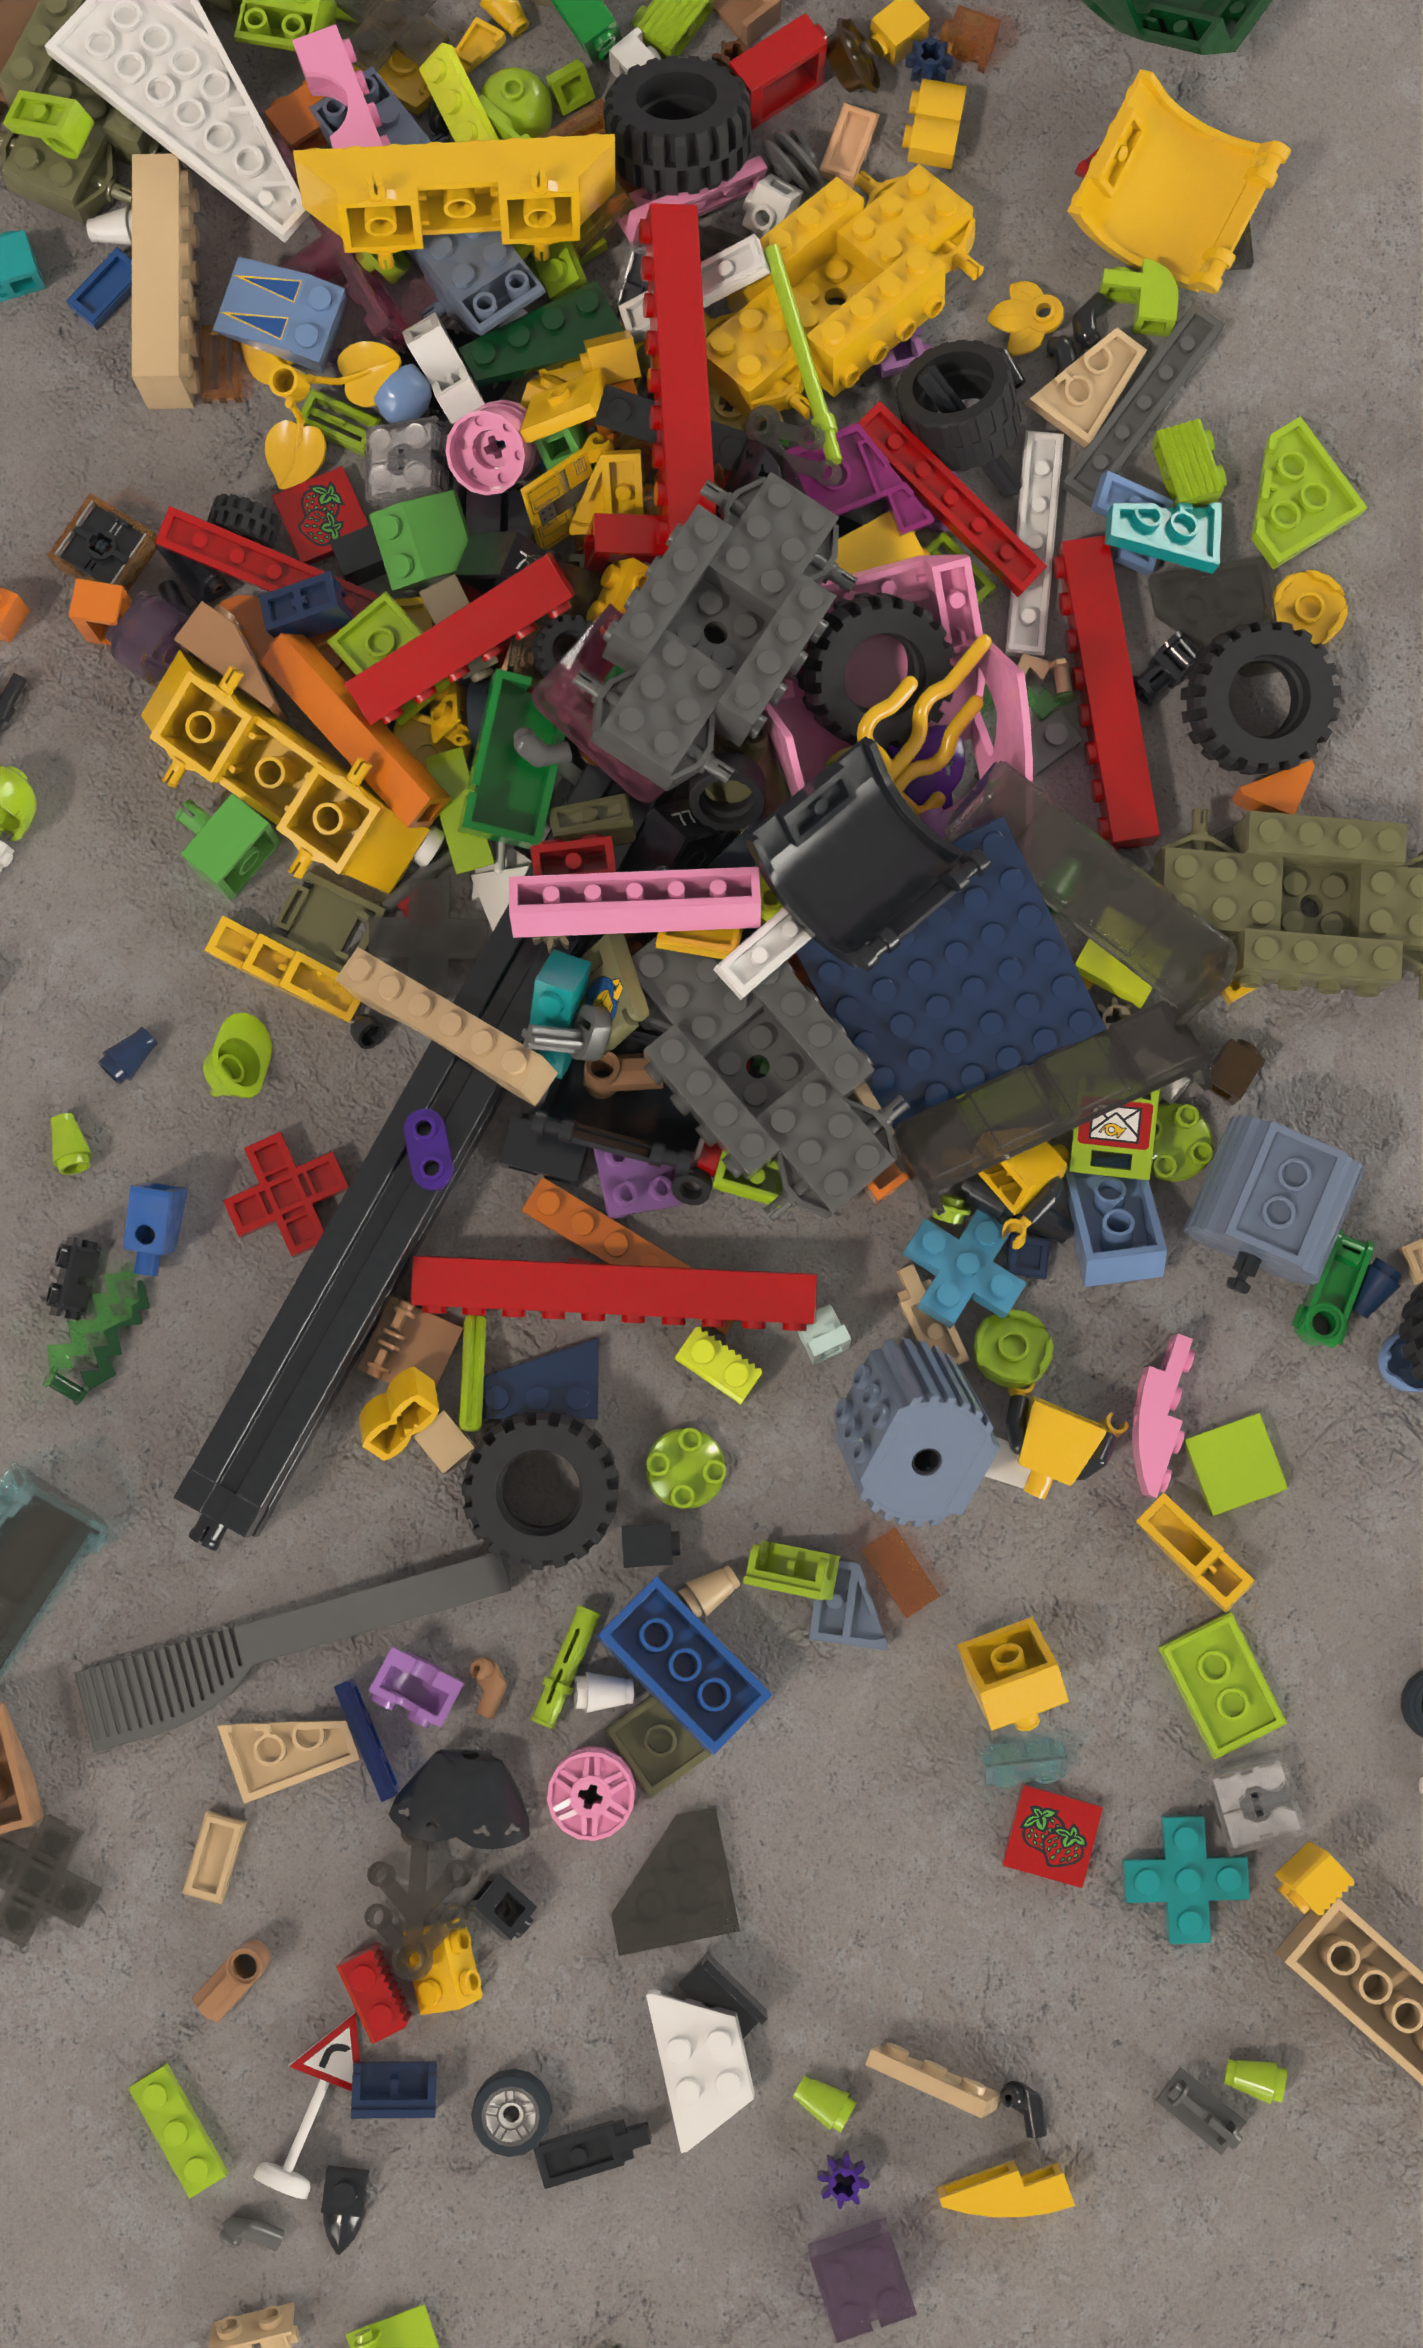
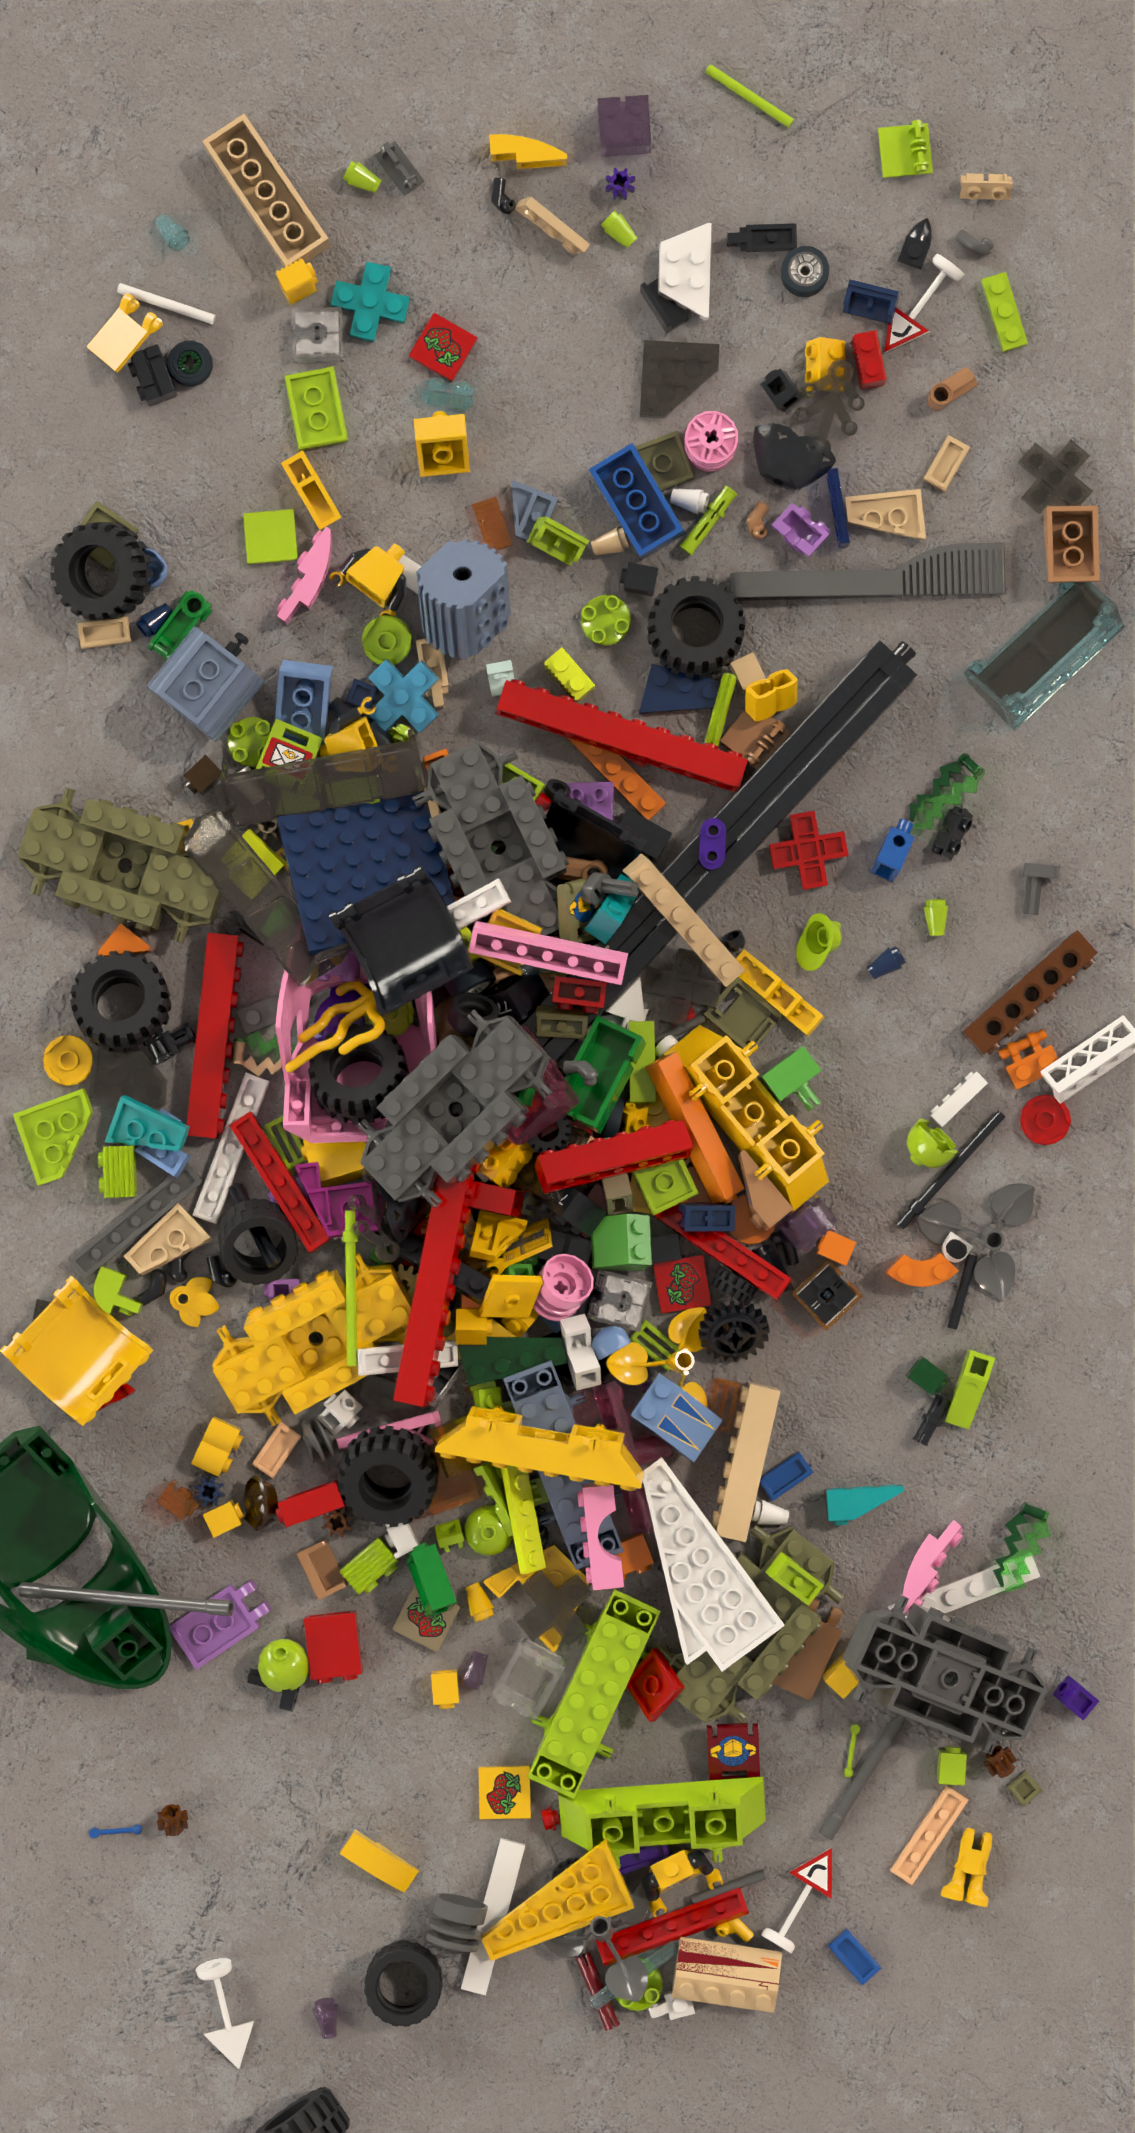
camera: 160 degrees left, 5 degrees up
(226, 458) = (734, 1331): none -> black gear

